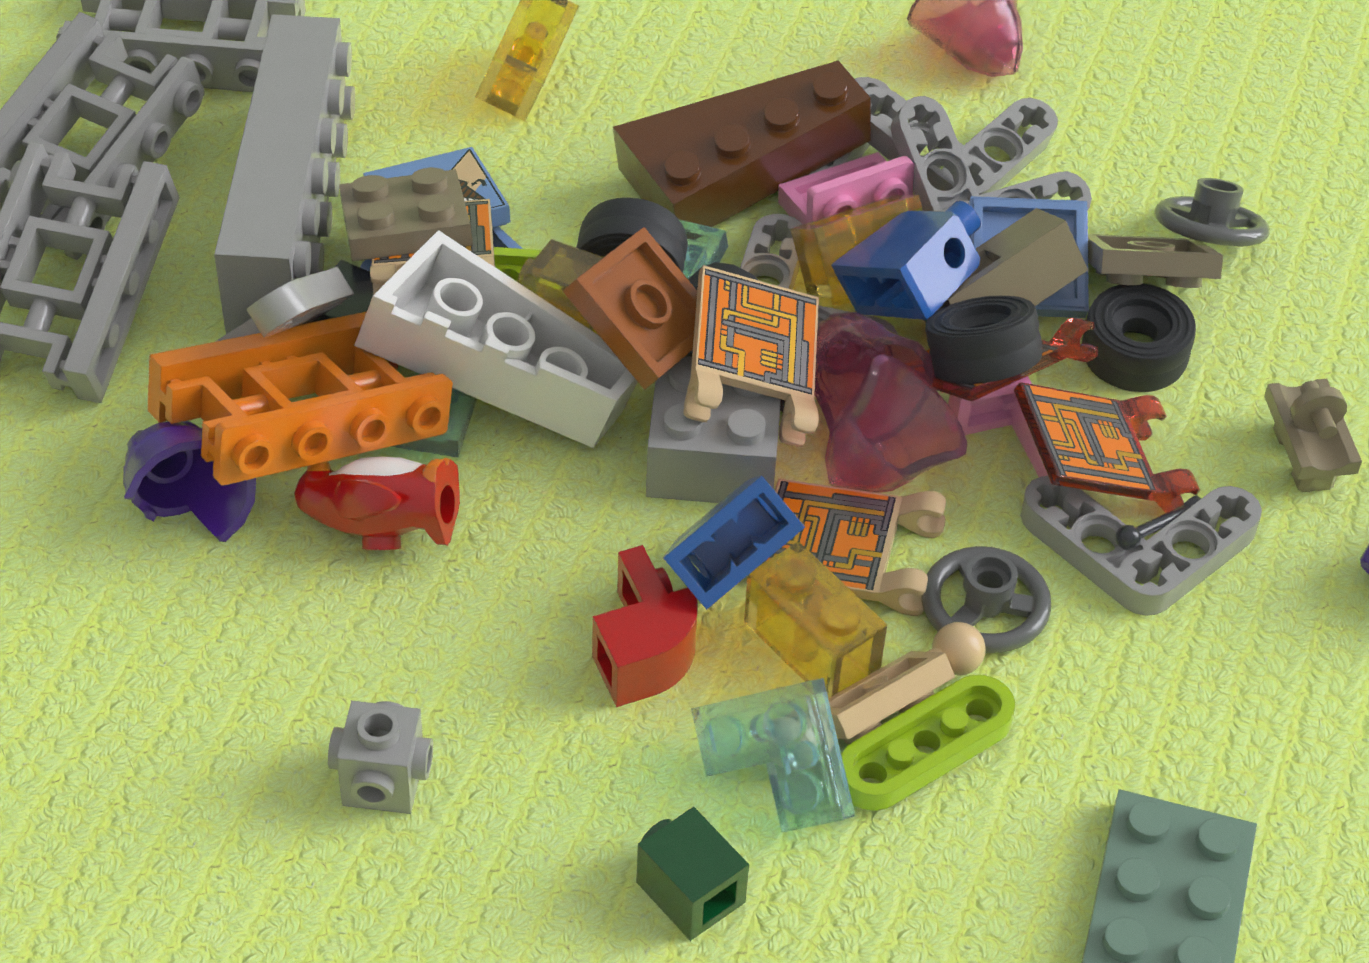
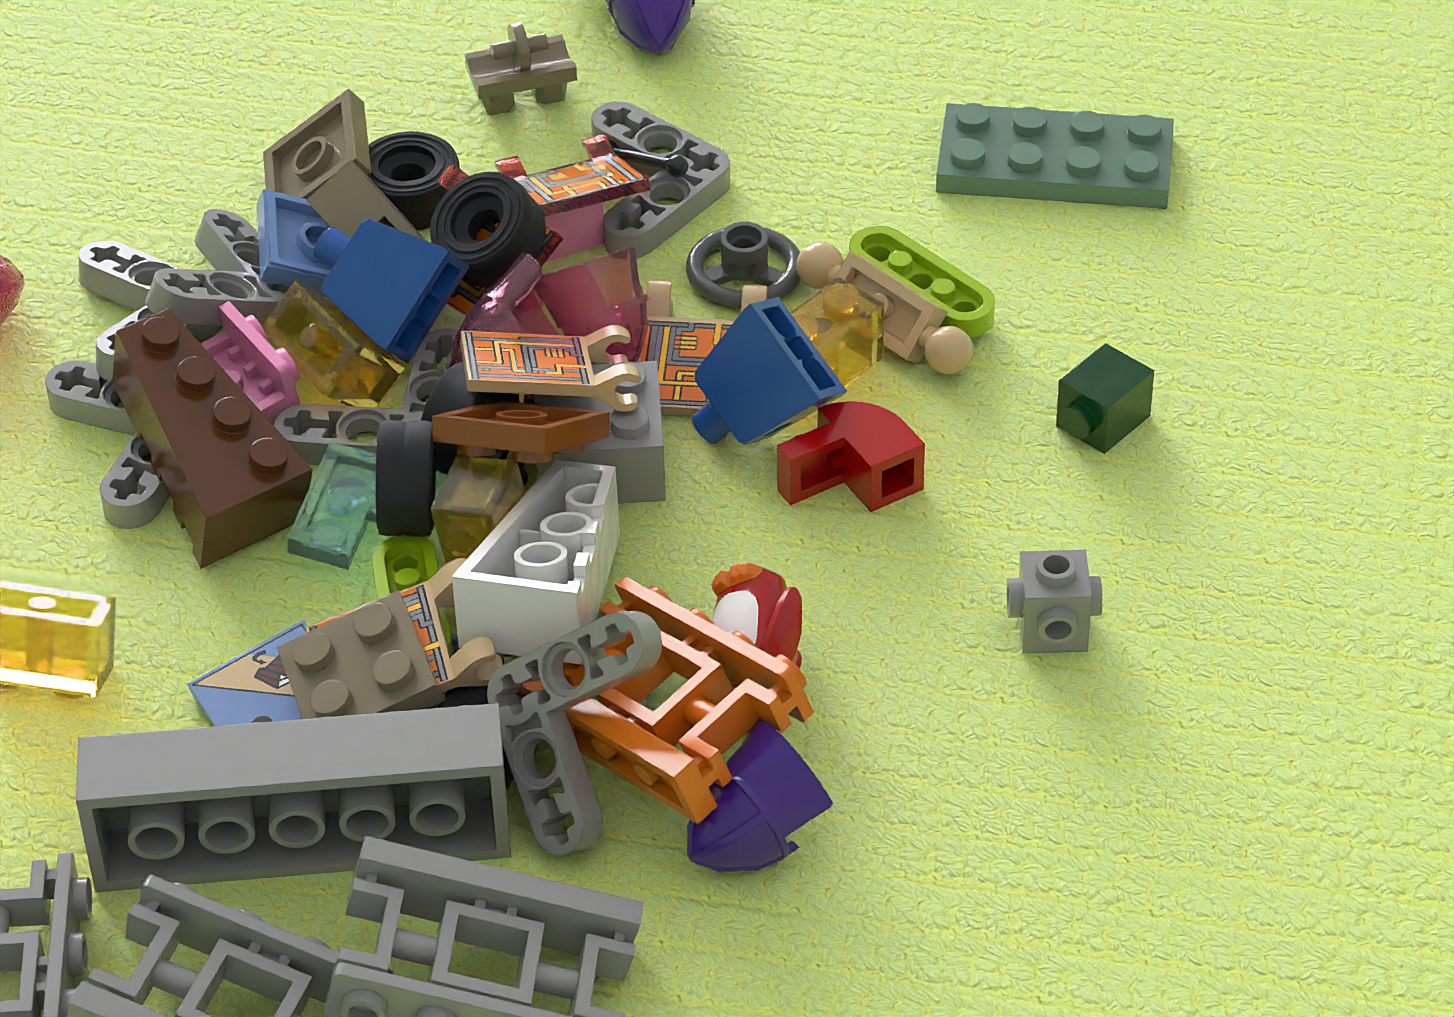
camera: 95 degrees left, 5 degrees down
(796, 740) = (969, 334): clear light blue plate -> none
(1212, 214) = (241, 126): dark grey piece -> none

